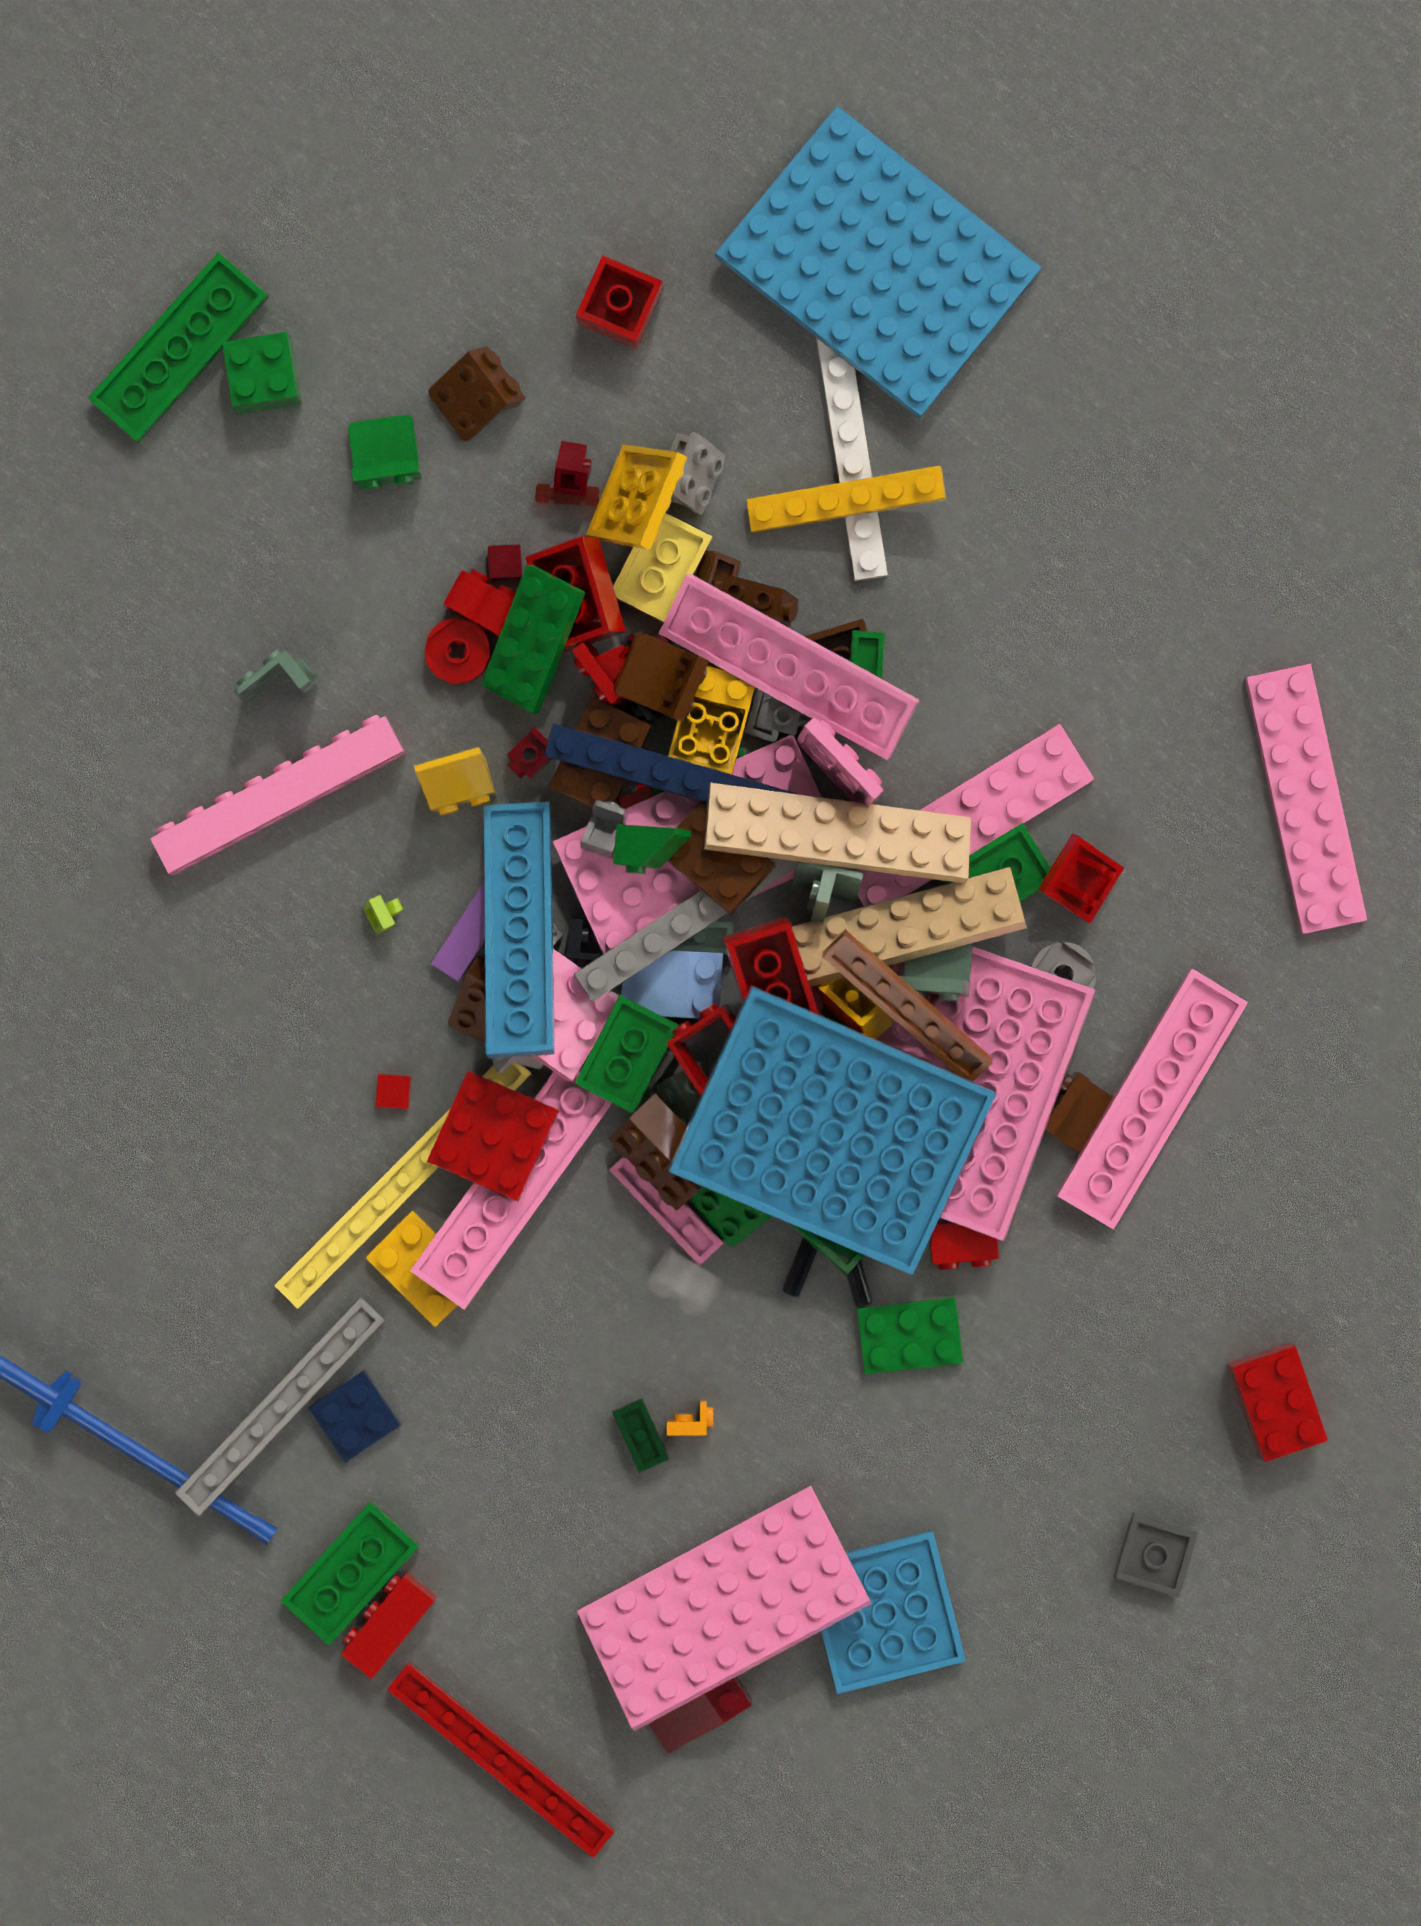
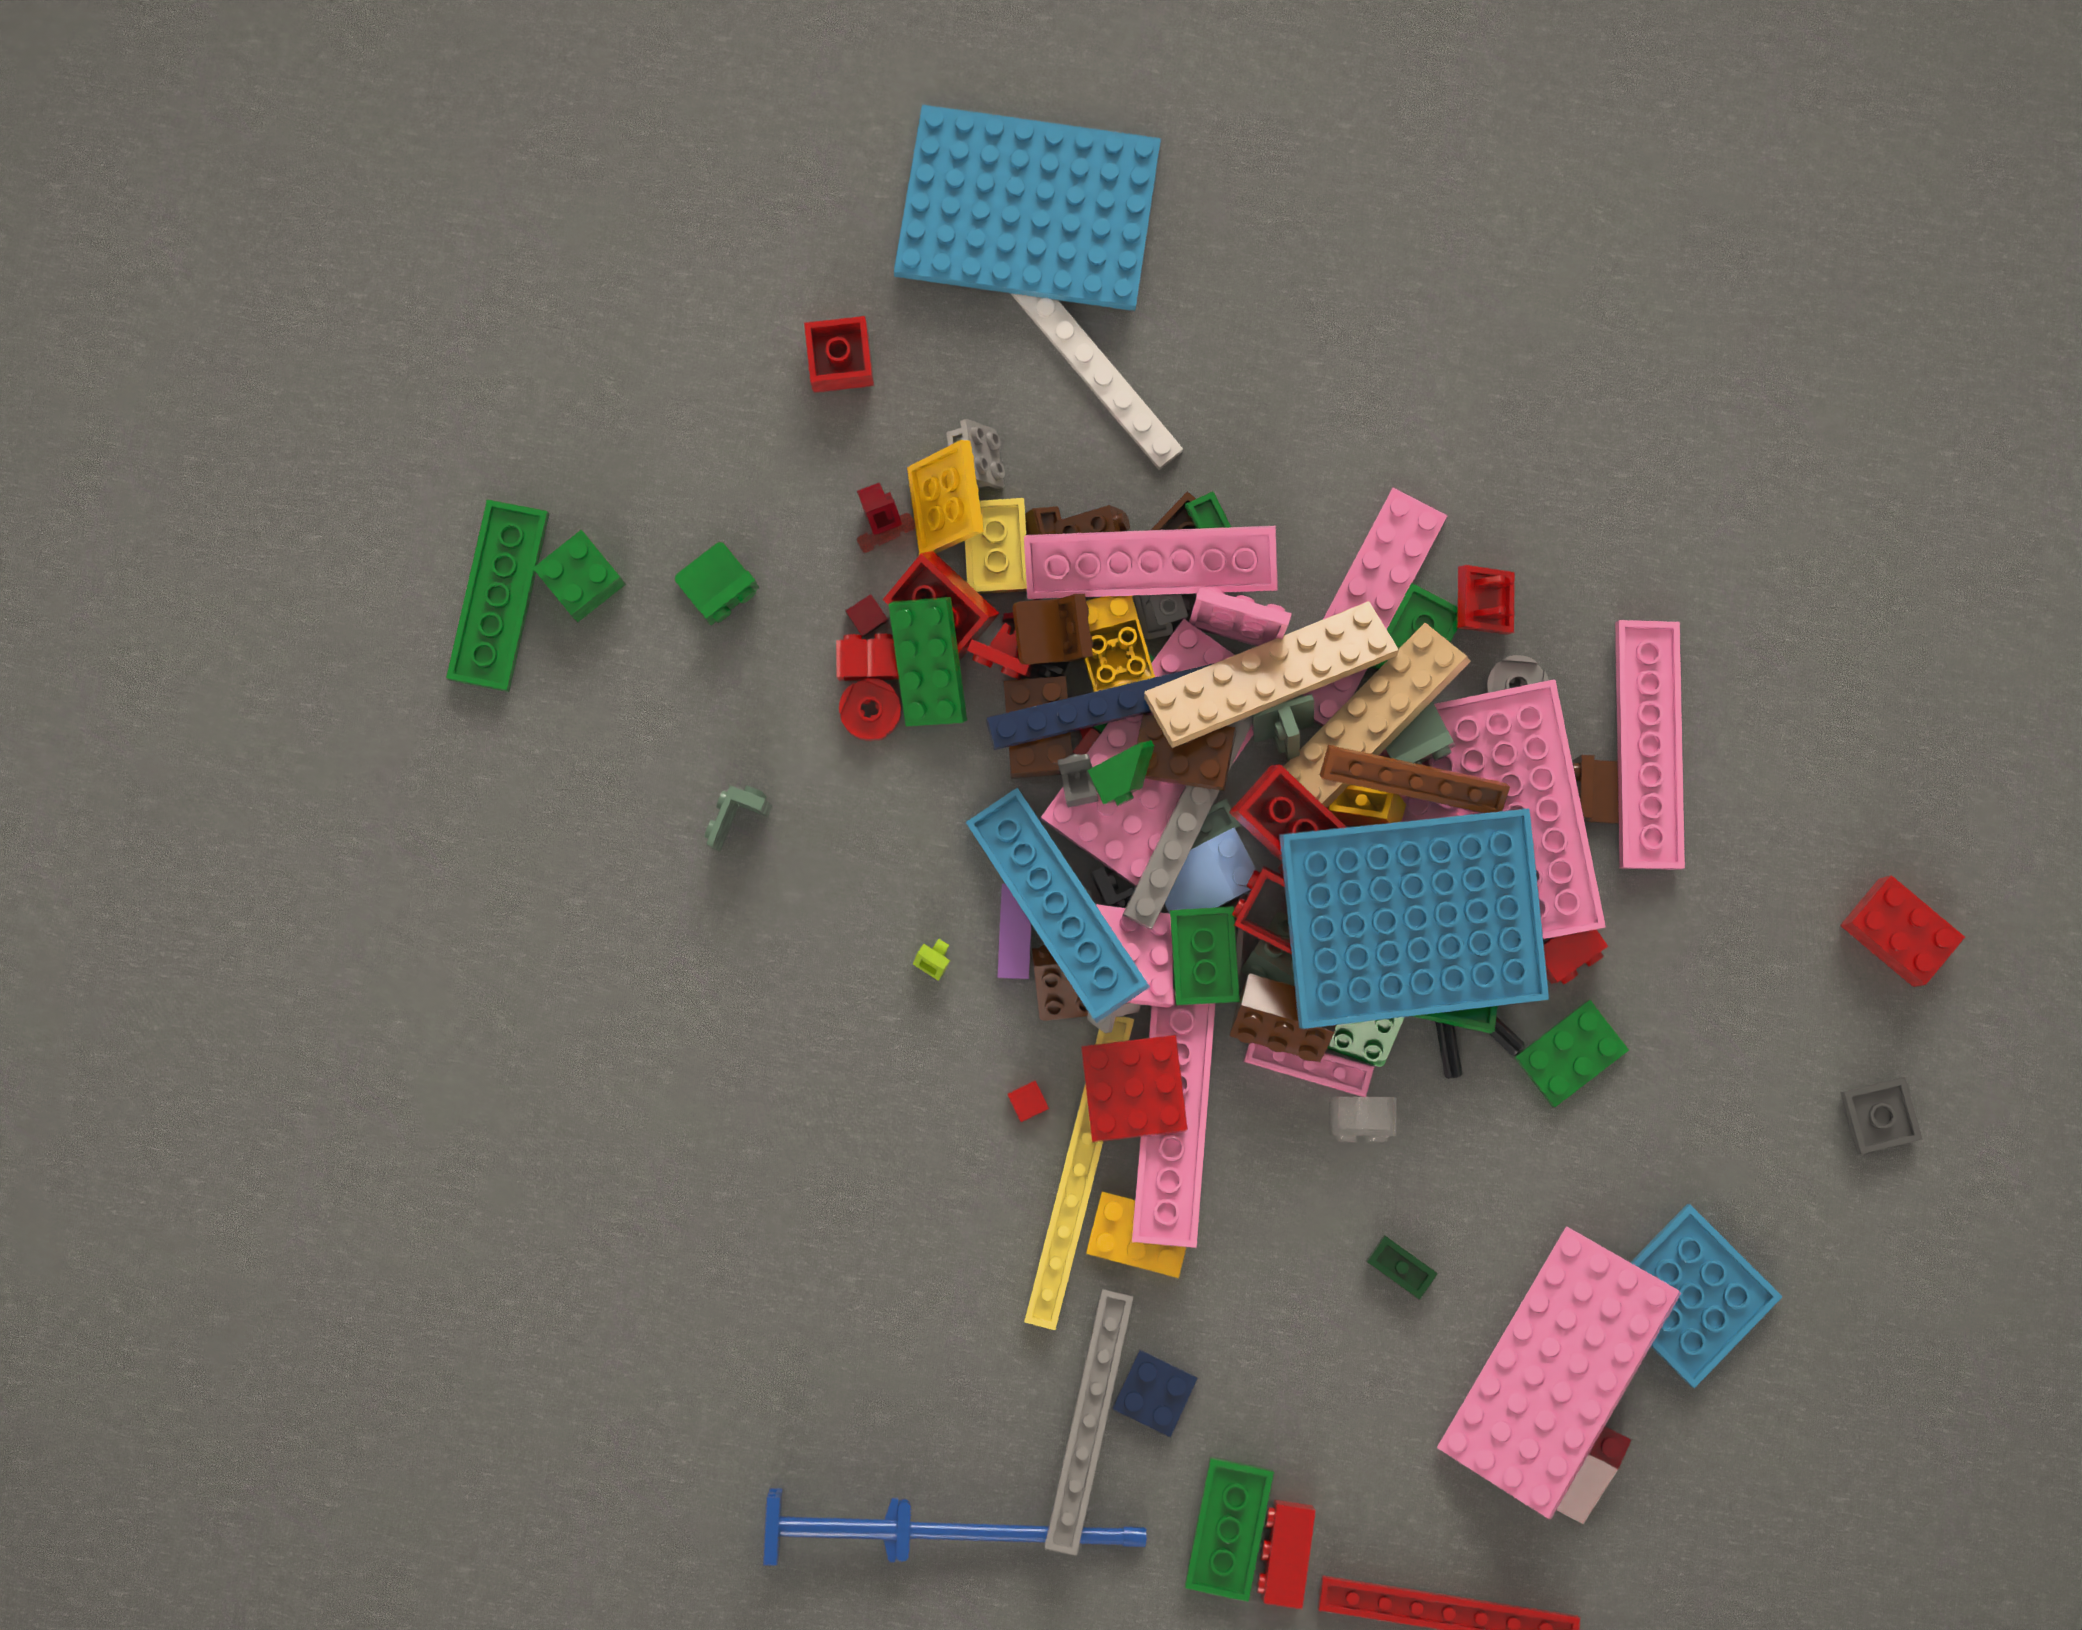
camera: 30 degrees left, 5 degrees down
(278, 795) = (790, 912): bright pink brick -> none
(456, 781) = (932, 813): yellow slope -> none
(475, 392) = (762, 493): reddish brown bracket -> none
(522, 767) = (975, 771): dark red brick -> none
(685, 1424) = (1432, 1236): light orange bracket -> none
(846, 499) = (1115, 406): yellow plate -> none
(1305, 799) = (1624, 435): bright pink plate -> none

